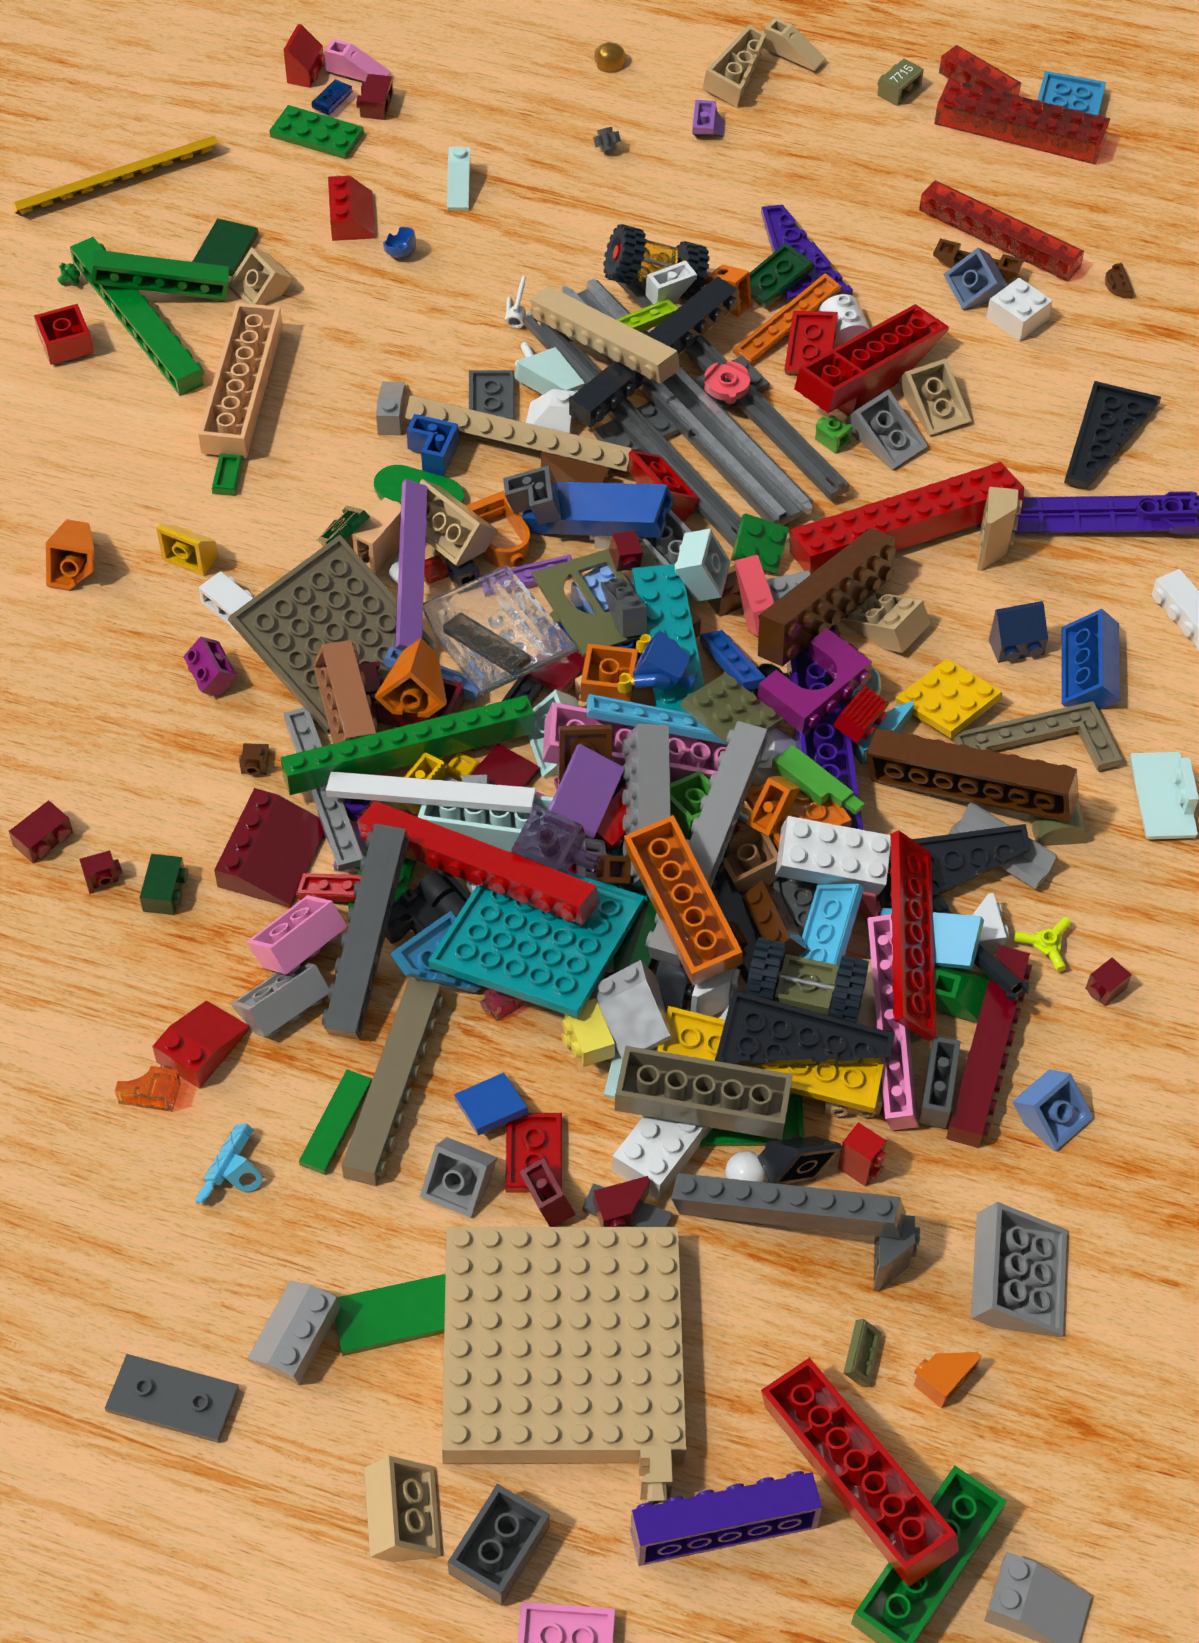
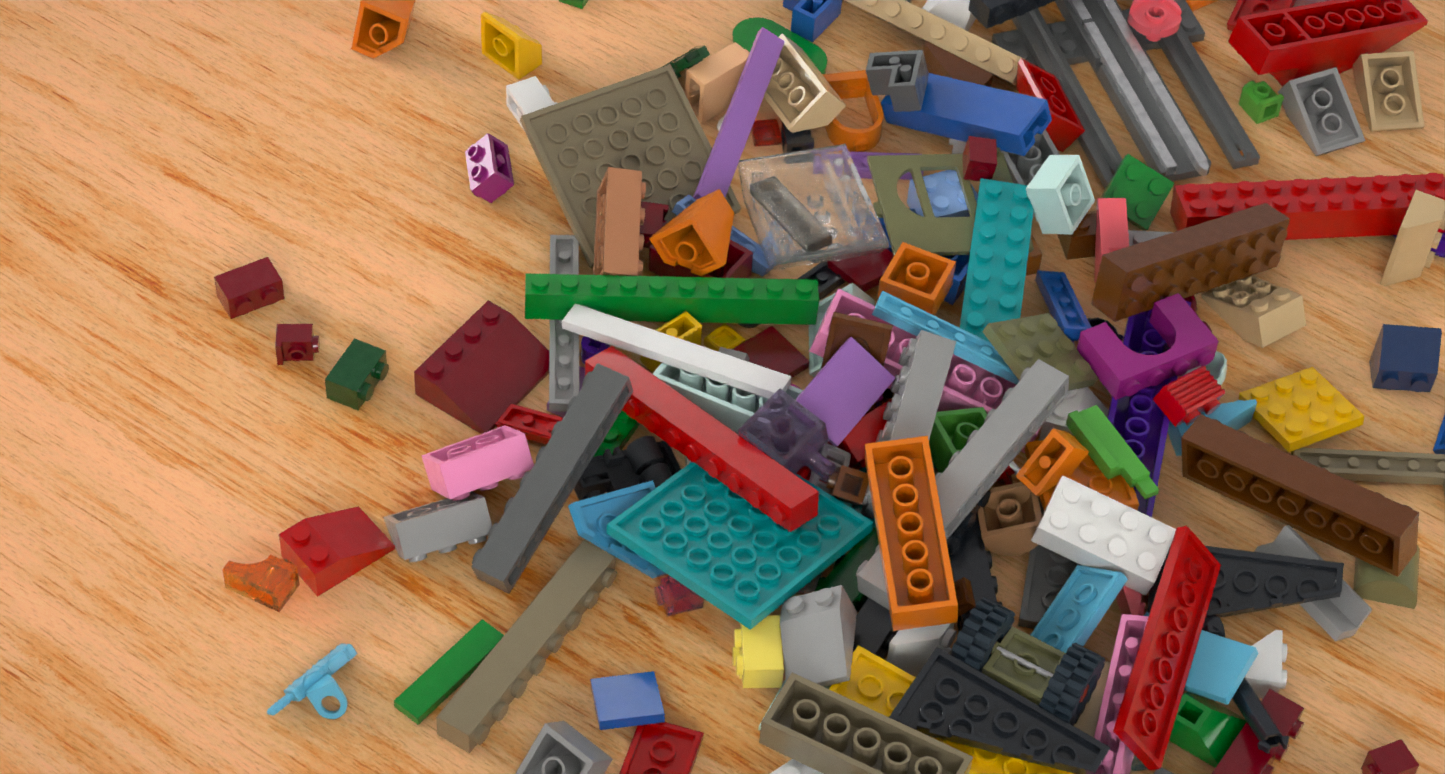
camera: 15 degrees right, 5 degrees down
(254, 759) = (502, 274): reddish brown bracket -> none
(625, 607) = (958, 217): dark grey slope -> none
(659, 665) = (972, 284): blue torso -> none
(773, 918) = (1015, 587): reddish brown brick -> none
(1047, 942) = (1331, 703): neon yellow piece -> none

